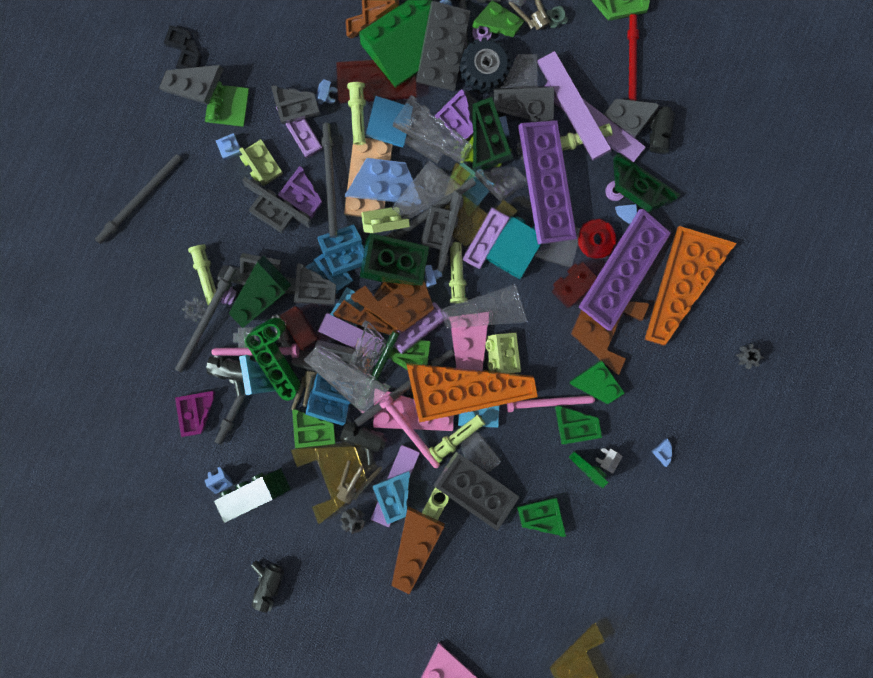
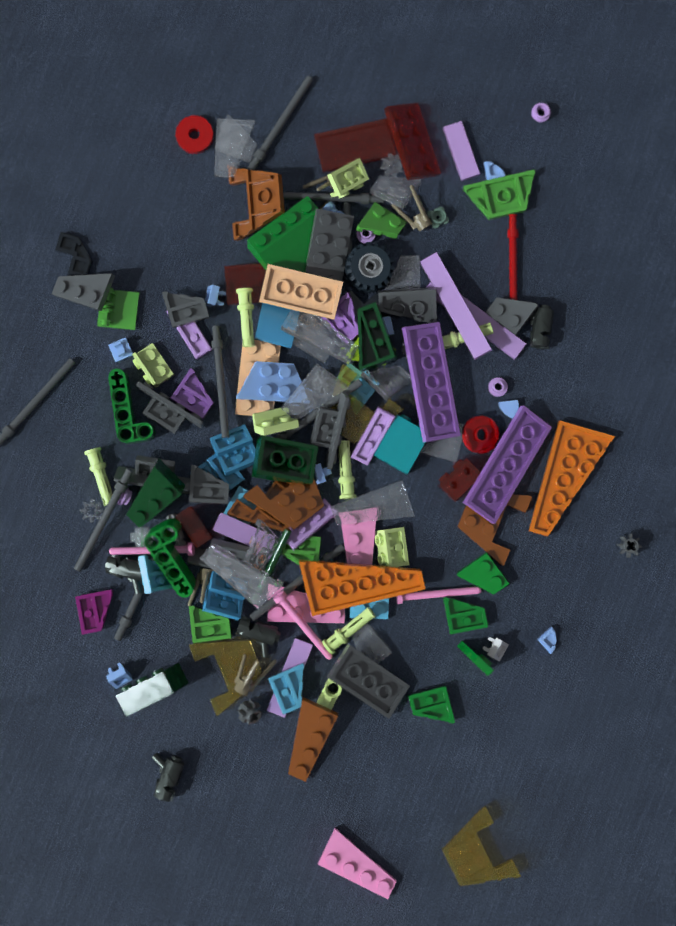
camera: 10 degrees left, 0 degrees up
(232, 202) = (126, 405): none -> green beam
(414, 86) = (301, 291): none -> light nougat plate
(641, 186) = (522, 382): dark green wing -> none

